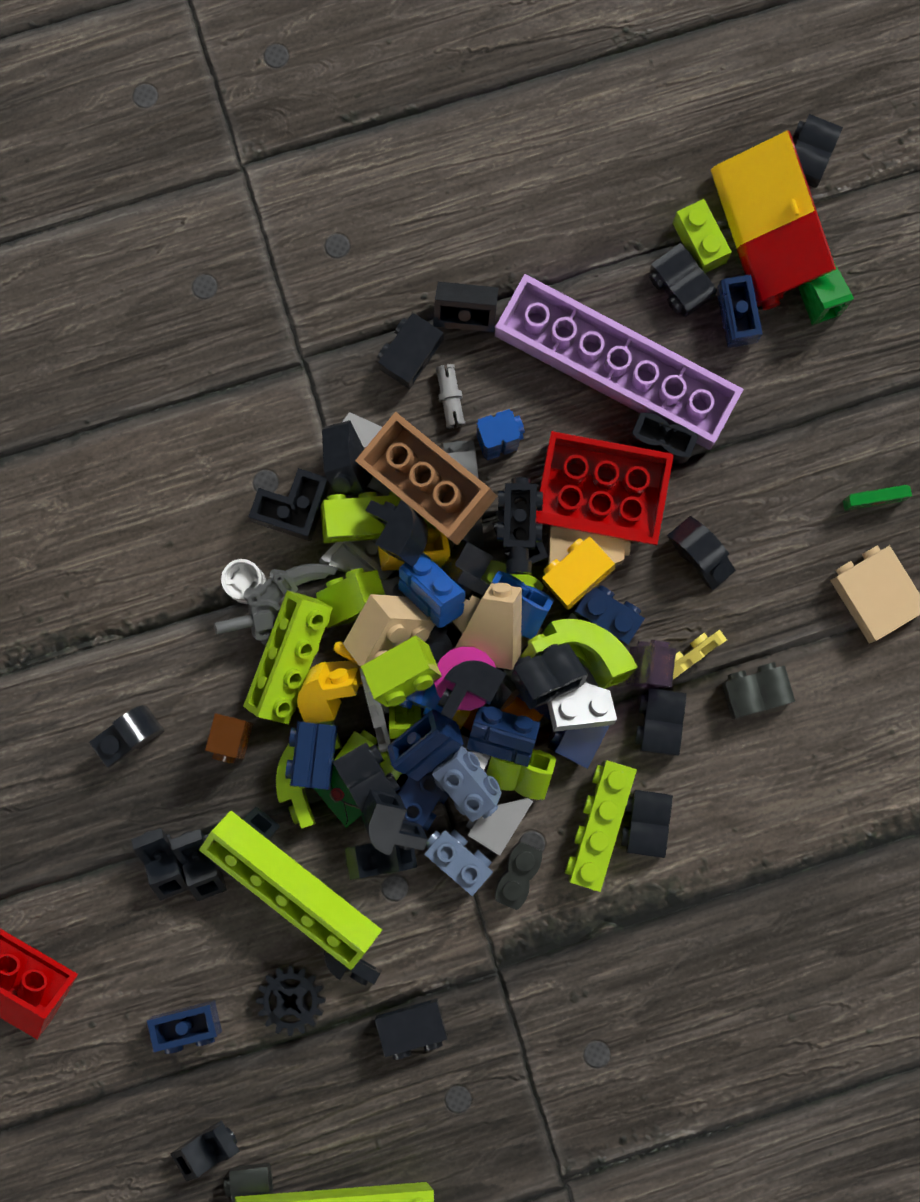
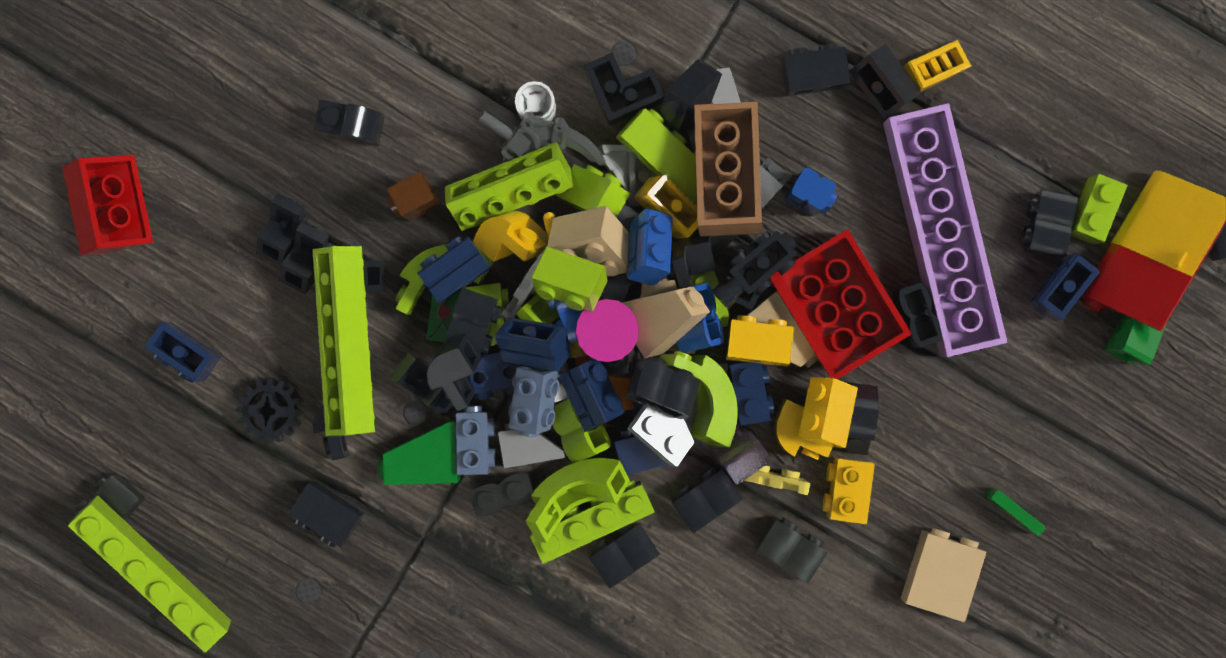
camera: 50 degrees right, 5 degrees up
(205, 1151) = (111, 445): black brick -> none
(404, 530) = (674, 189): black brick -> none
(437, 912) = (423, 459): none -> green slope
(450, 396) = (808, 130): light grey pin -> none
(471, 677) = (611, 334): black brick -> none
(483, 276) = (920, 75): none -> yellow slope
(561, 813) = (572, 485): none -> lime arch
(664, 609) = (787, 428): none -> yellow brick
(677, 568) = (828, 412): none -> yellow brick
(750, 607) = (849, 490): none -> yellow brick

